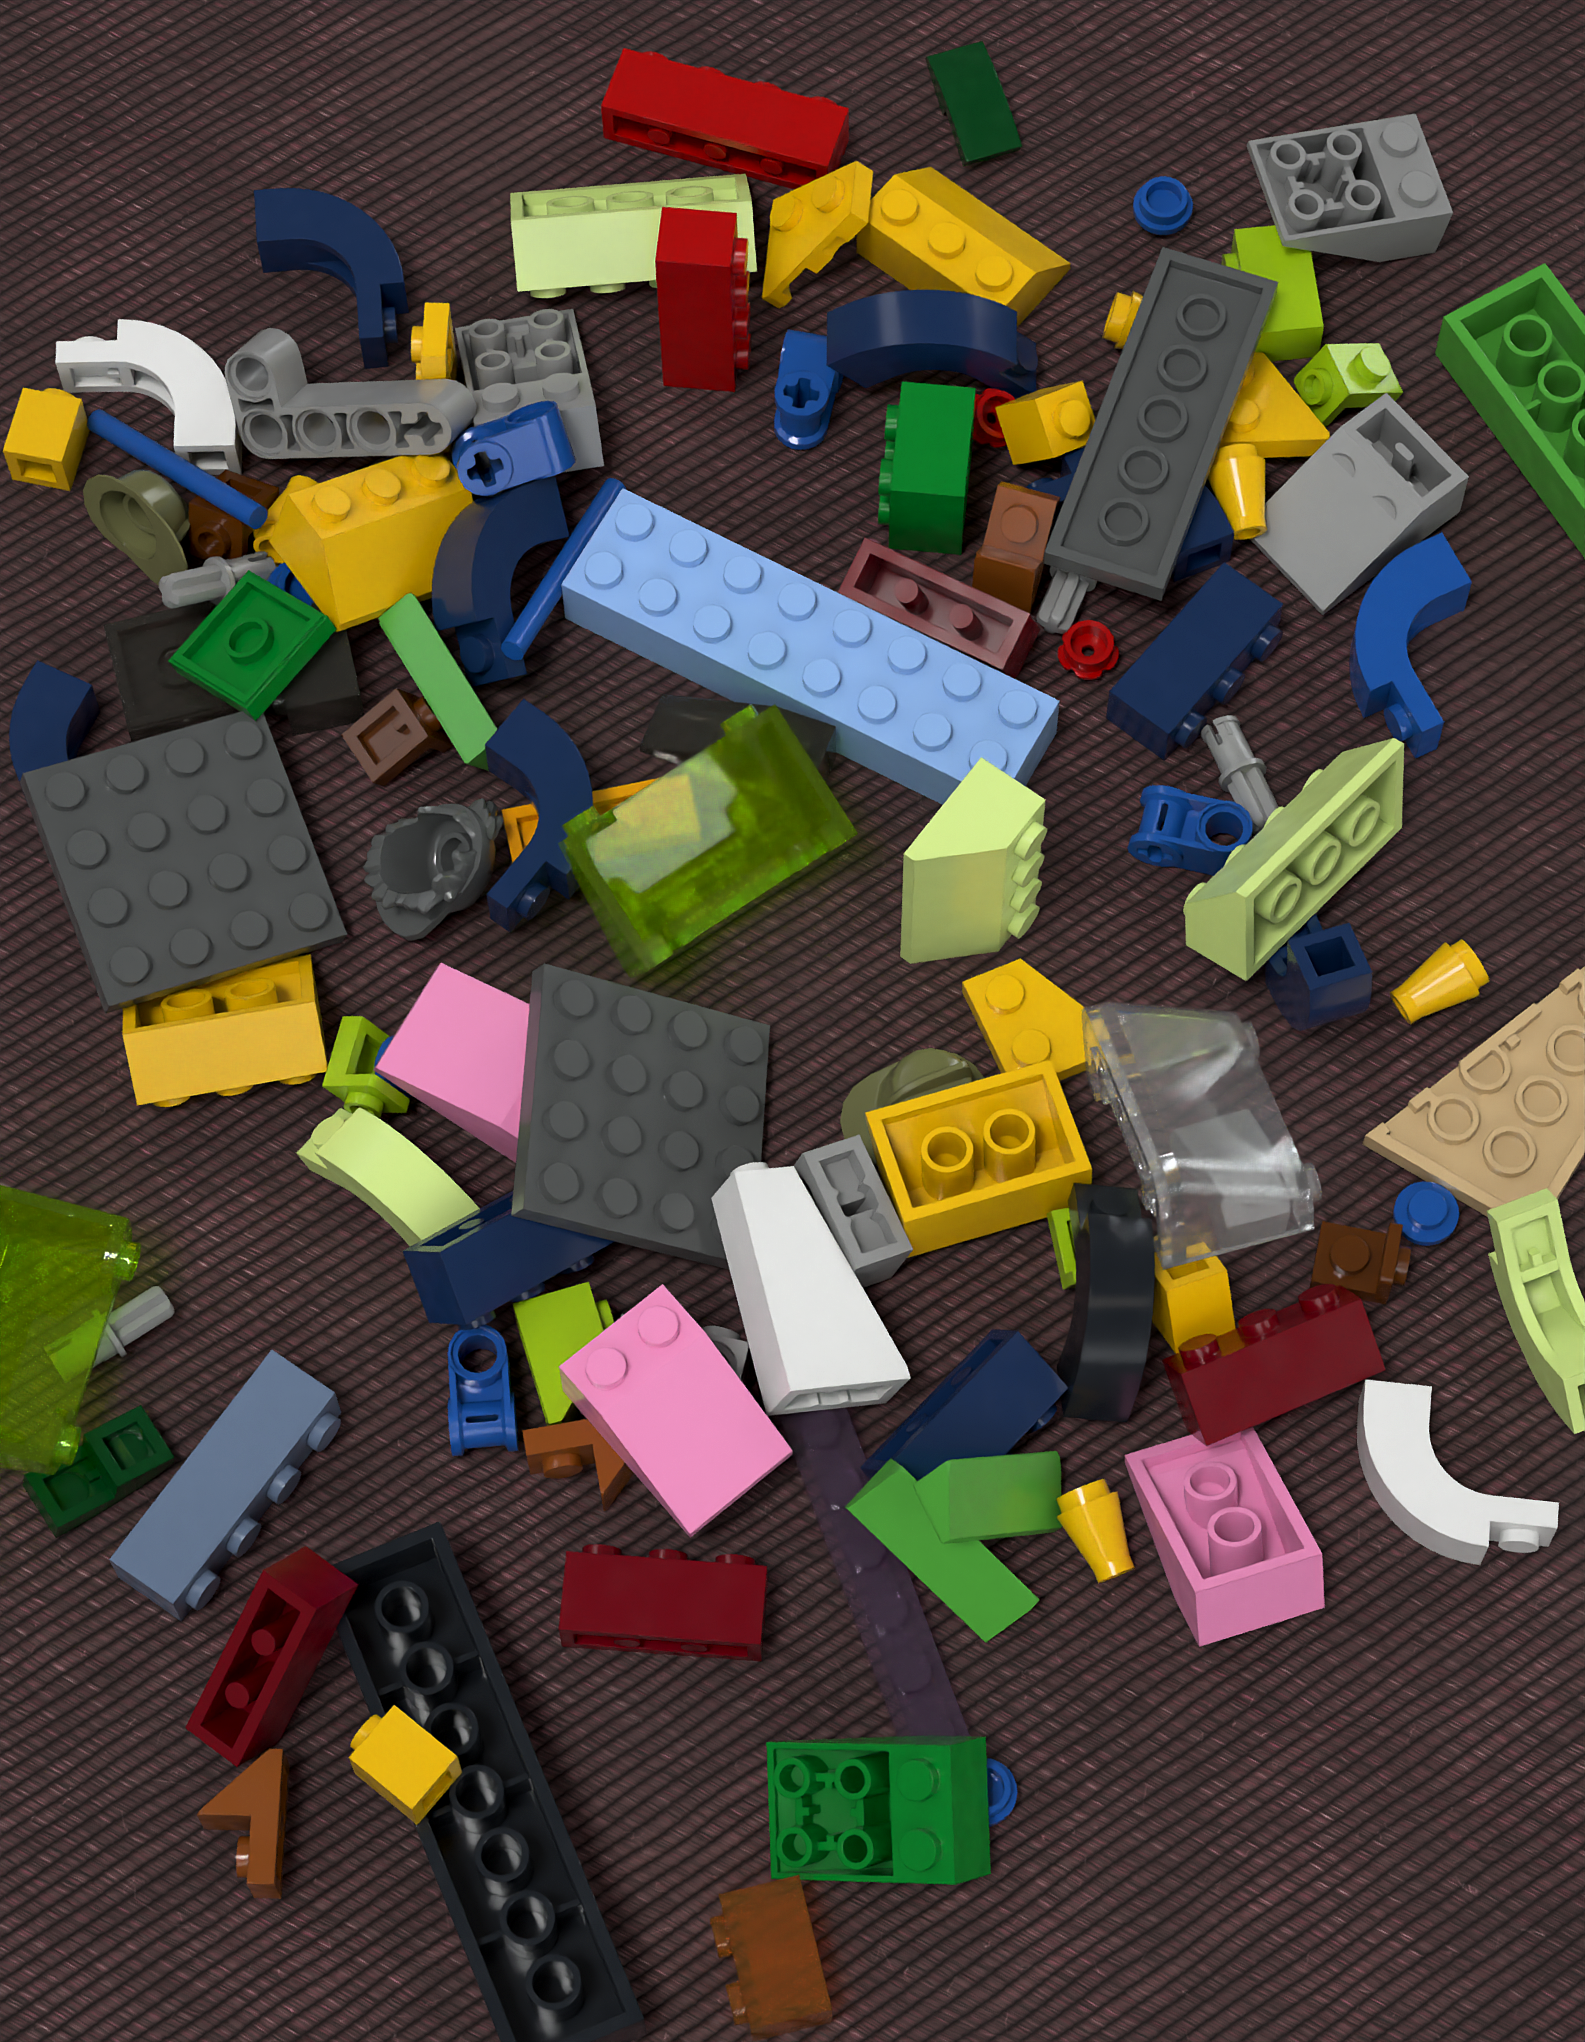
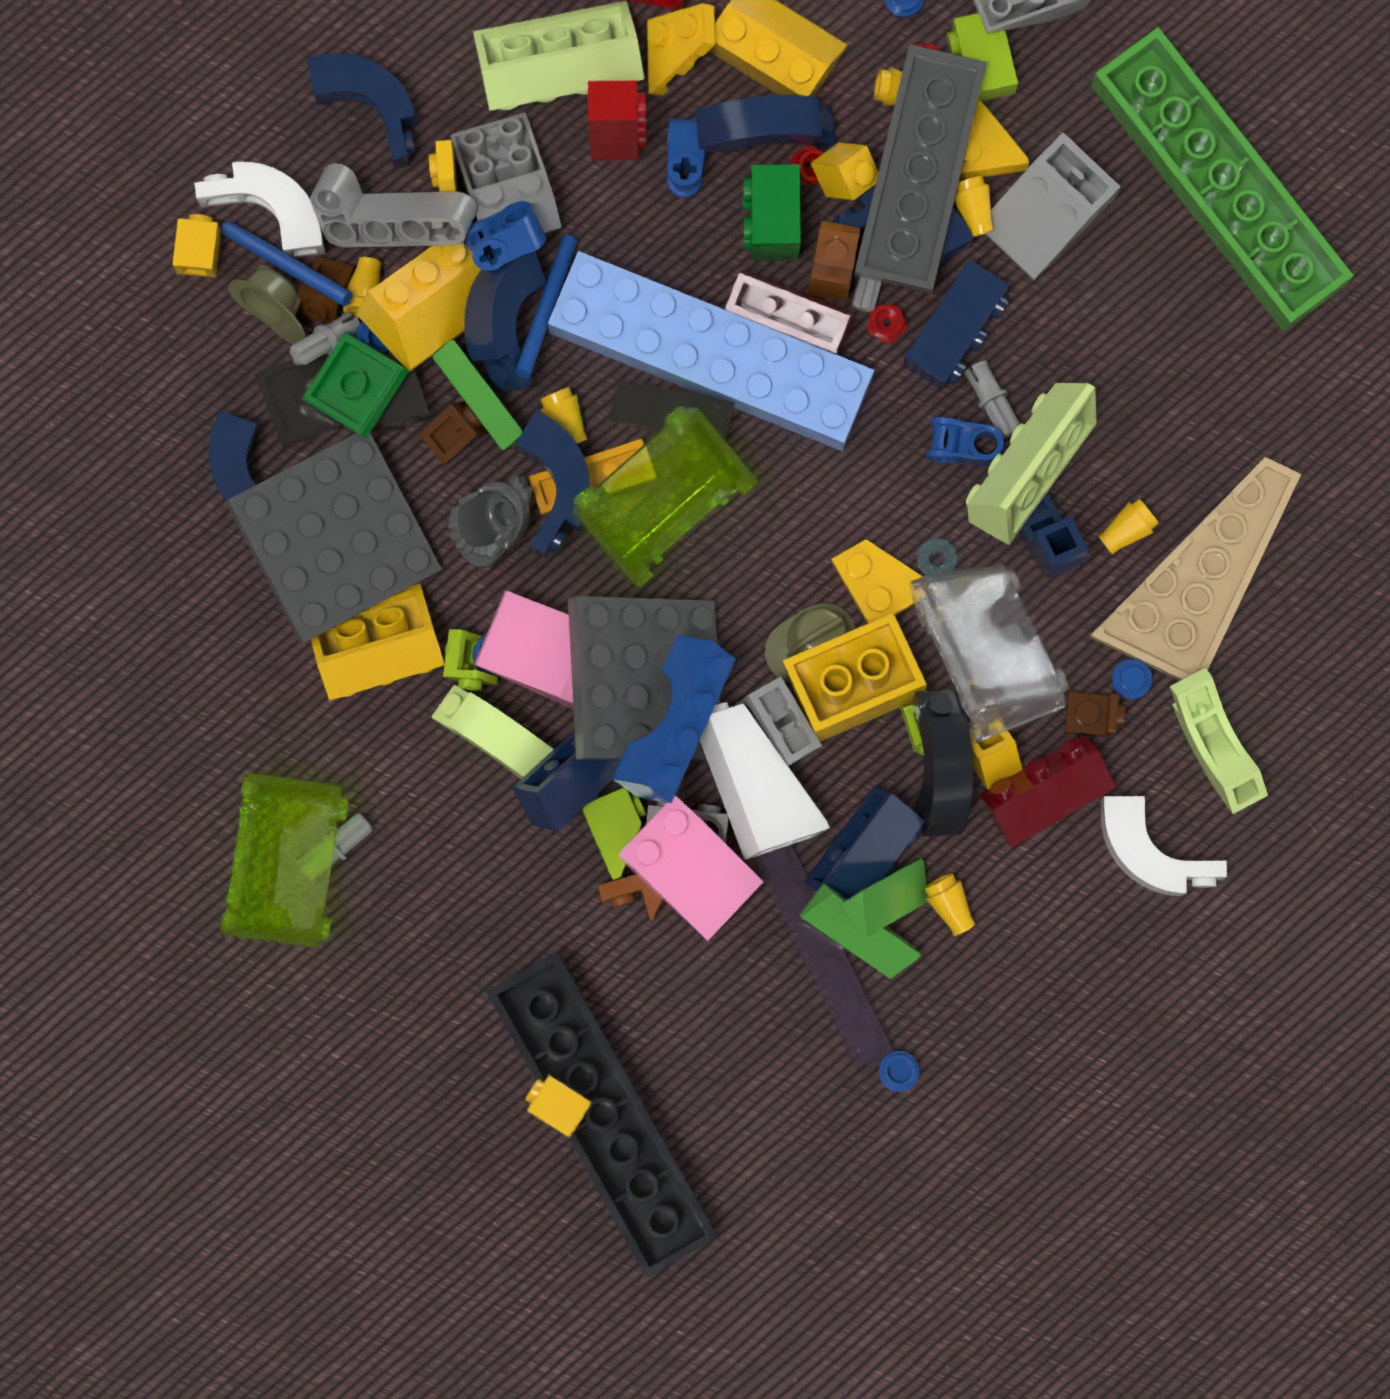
camera: 10 degrees left, 15 degrees up
(106, 1469) = (348, 930): dark green slope -> none
(228, 1486) = (422, 935): sand blue brick -> none
(259, 1805) = (471, 1128): dark orange slope -> none
(271, 1655) = (468, 1046): dark red brick -> none
(480, 1403) = (569, 865): blue piece -> none
(576, 716) = (565, 410): none -> yellow cone
(644, 1229) = (658, 762): none -> blue arch
(663, 1603) = (695, 979): dark red brick -> none
(773, 1959) = (787, 1187): clear orange brick -> none
(879, 1809) = (840, 1092): green slope -> none
(973, 869) = (837, 500): yellowish green slope -> none
(1131, 983) = (936, 546): none -> clear light blue plate
(1227, 1534) = (1028, 898): bright pink slope -> none
(1346, 378) = (1035, 114): lime bracket -> none
(1403, 599) = (1085, 266): blue arch -> none

